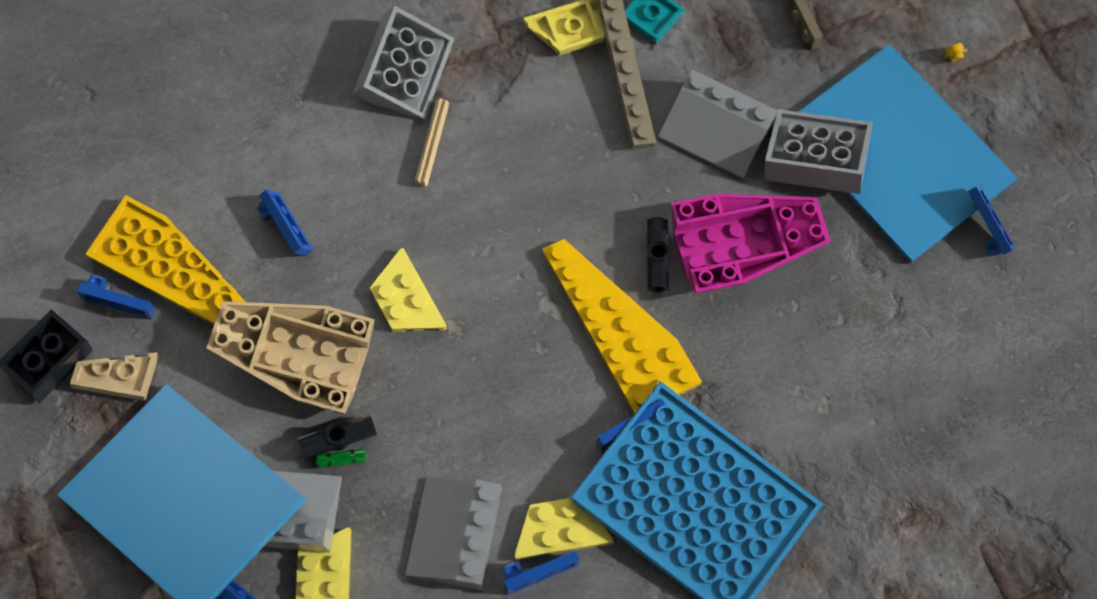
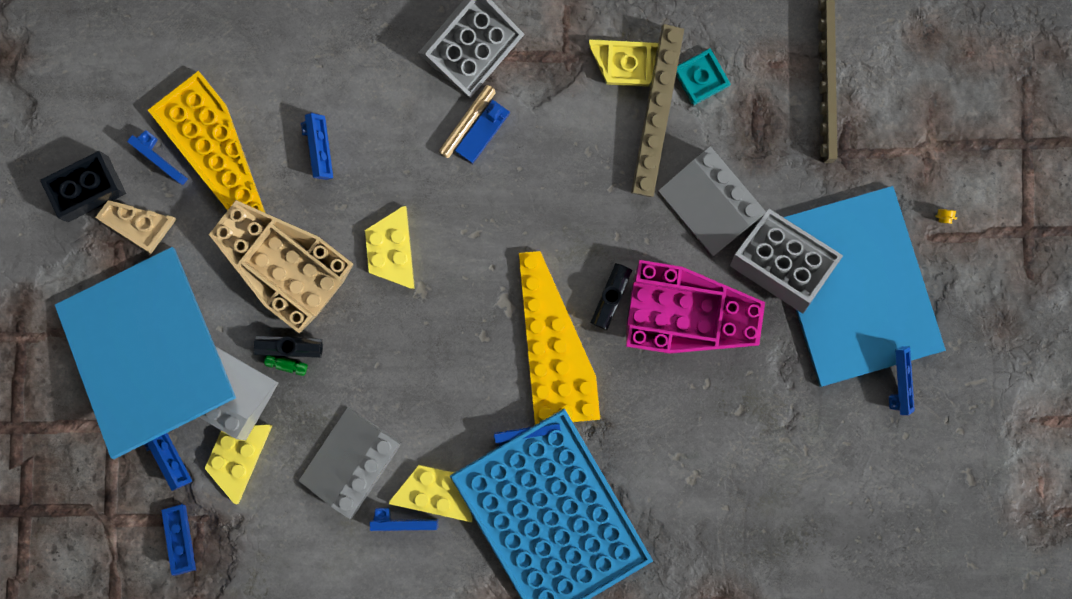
camera: 25 degrees right, 15 degrees up
(452, 146) = (482, 132): none -> blue hinge

